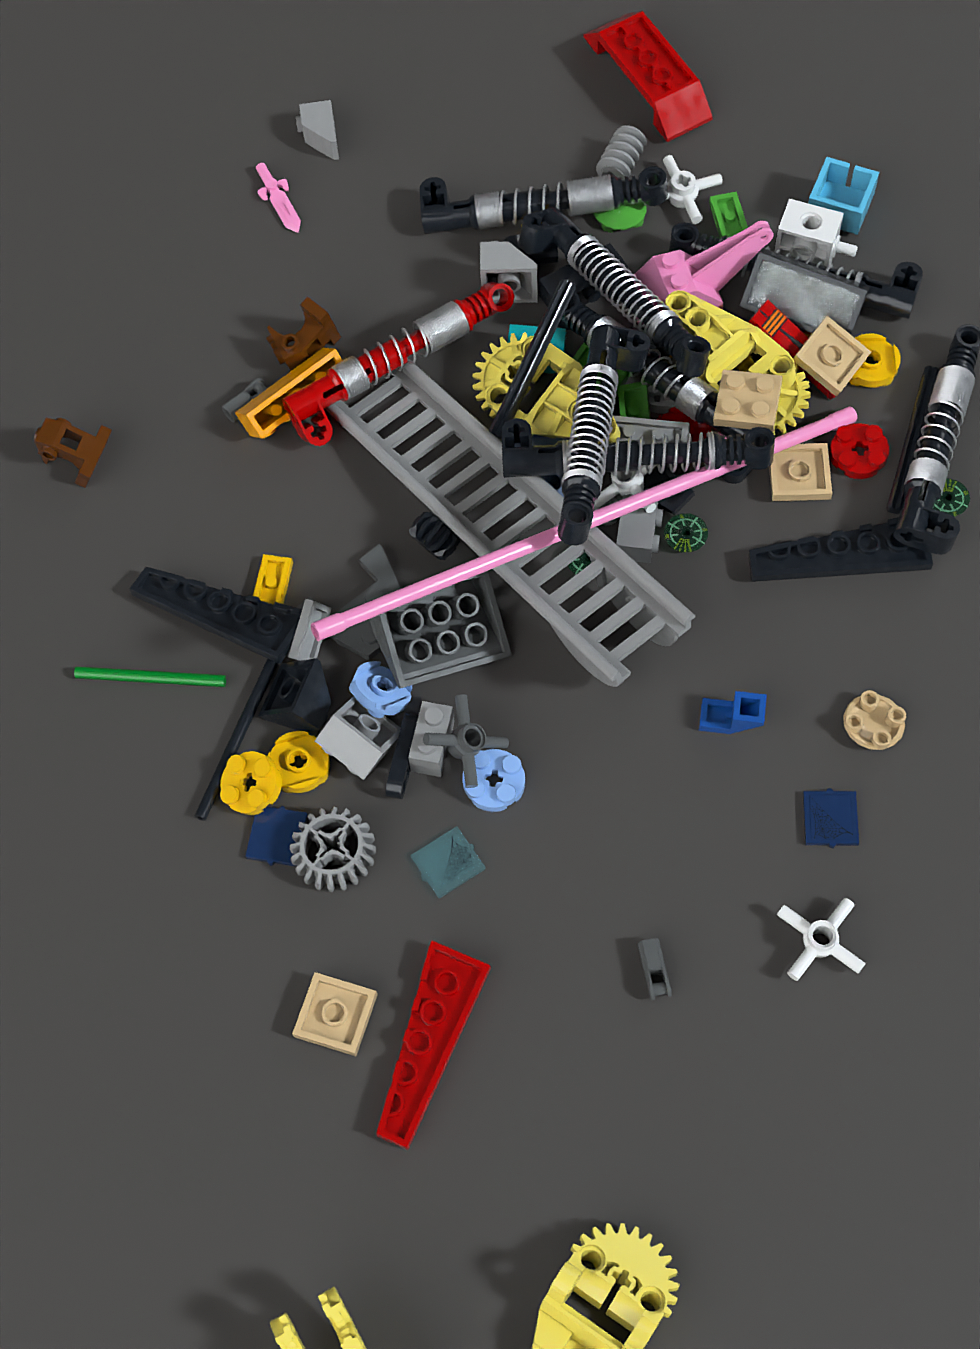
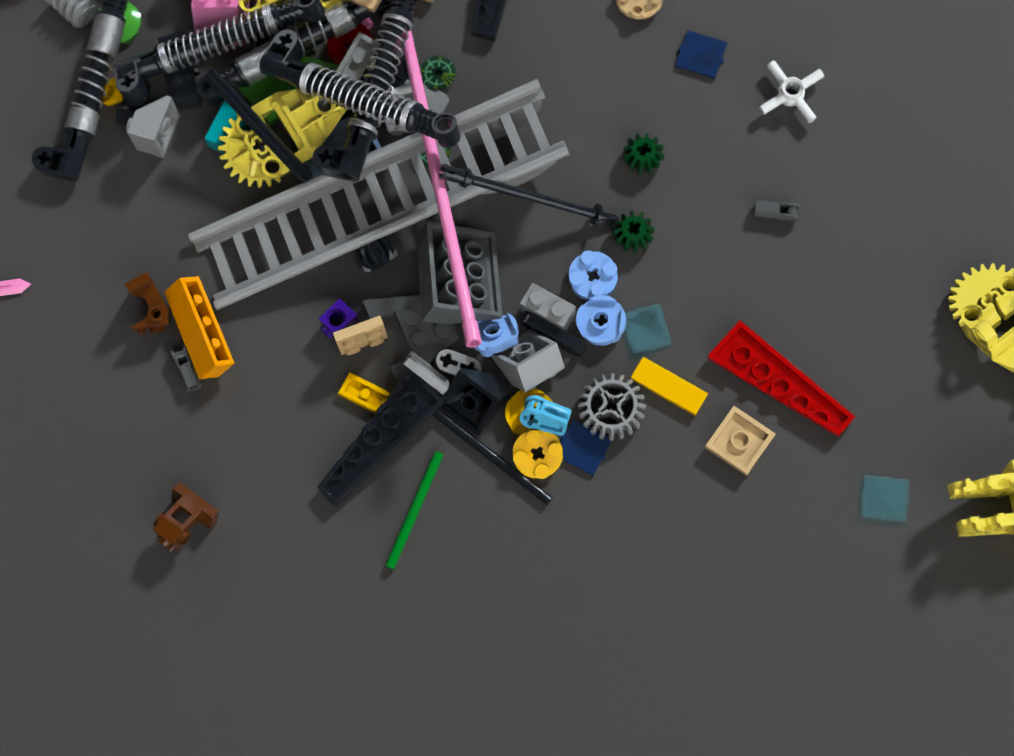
camera: 70 degrees left, 10 degrees up
(291, 771) = (546, 417): none -> medium azure piece
(314, 1222) = (885, 498): none -> clear light blue piece
(330, 548) = (360, 335): none -> tan plate
(340, 665) = (458, 358): none -> light grey beam
(350, 536) = (341, 310): none -> dark purple brick
(356, 374) = (208, 268): red piece -> none
(381, 910) = (669, 386): none -> yellow tile
(443, 820) = (610, 331): none -> light blue plate
(466, 741) = (562, 282): dark grey bar -> none
(535, 576) = (465, 178): none -> black bar
(560, 796) = (631, 240): none -> dark green gear
(659, 792) = (634, 151): none -> dark green gear
(733, 716) = (602, 89): blue slope -> none

